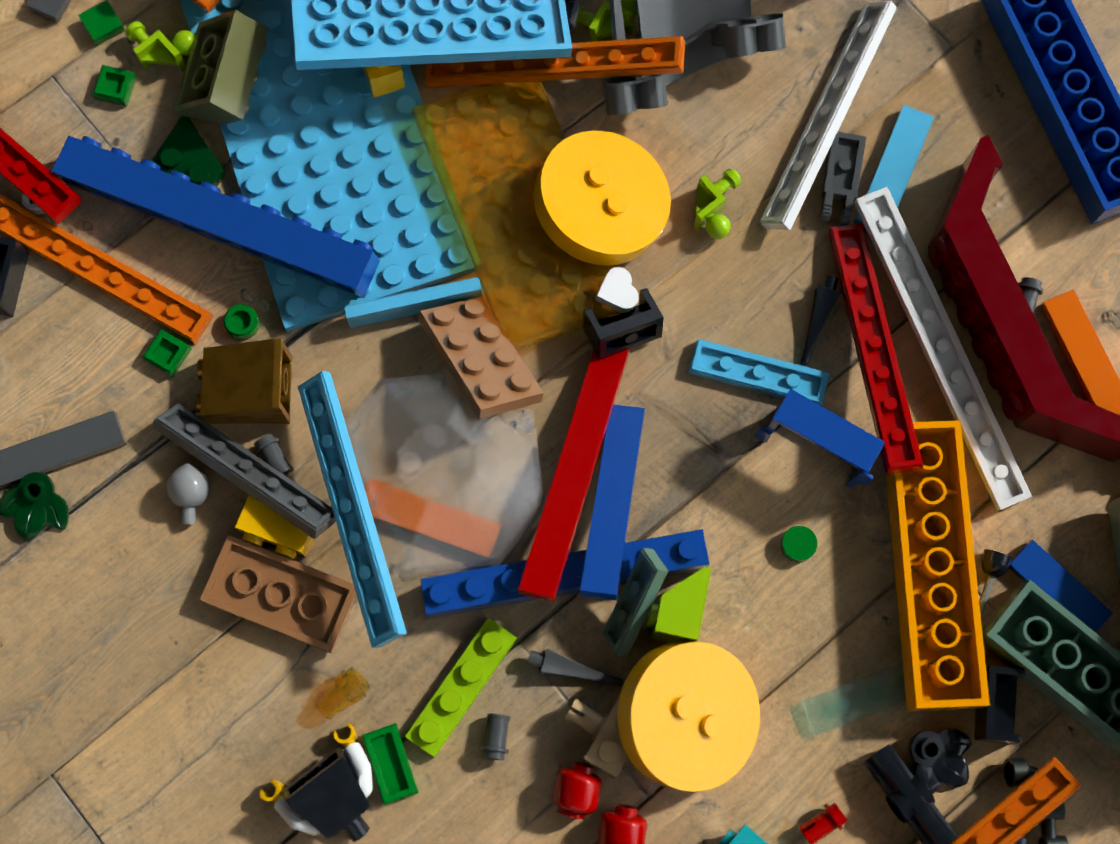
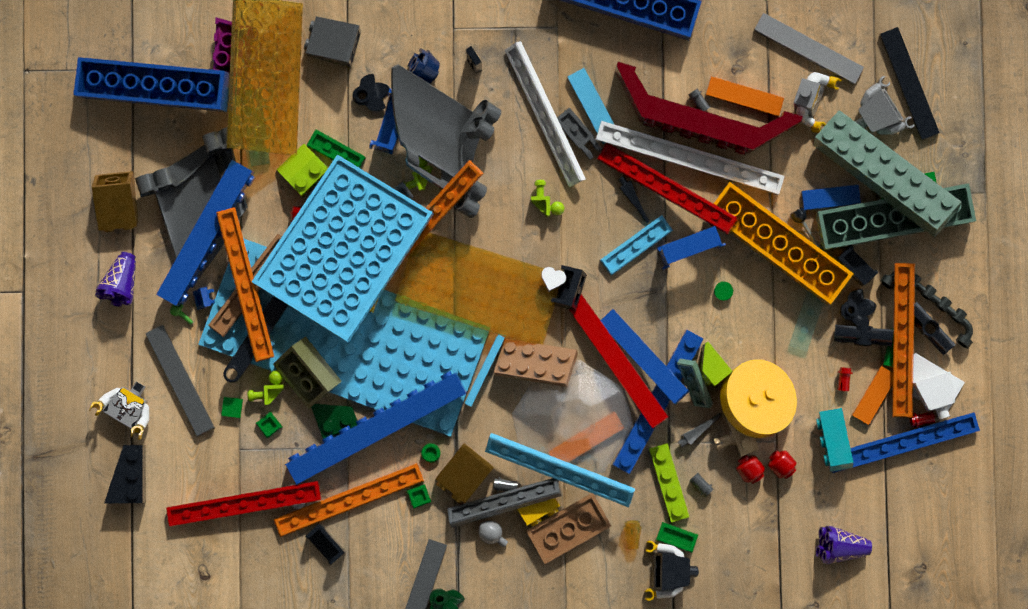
camera: 55 degrees left, 10 degrees up
(601, 198) = (505, 250): yellow brick -> none

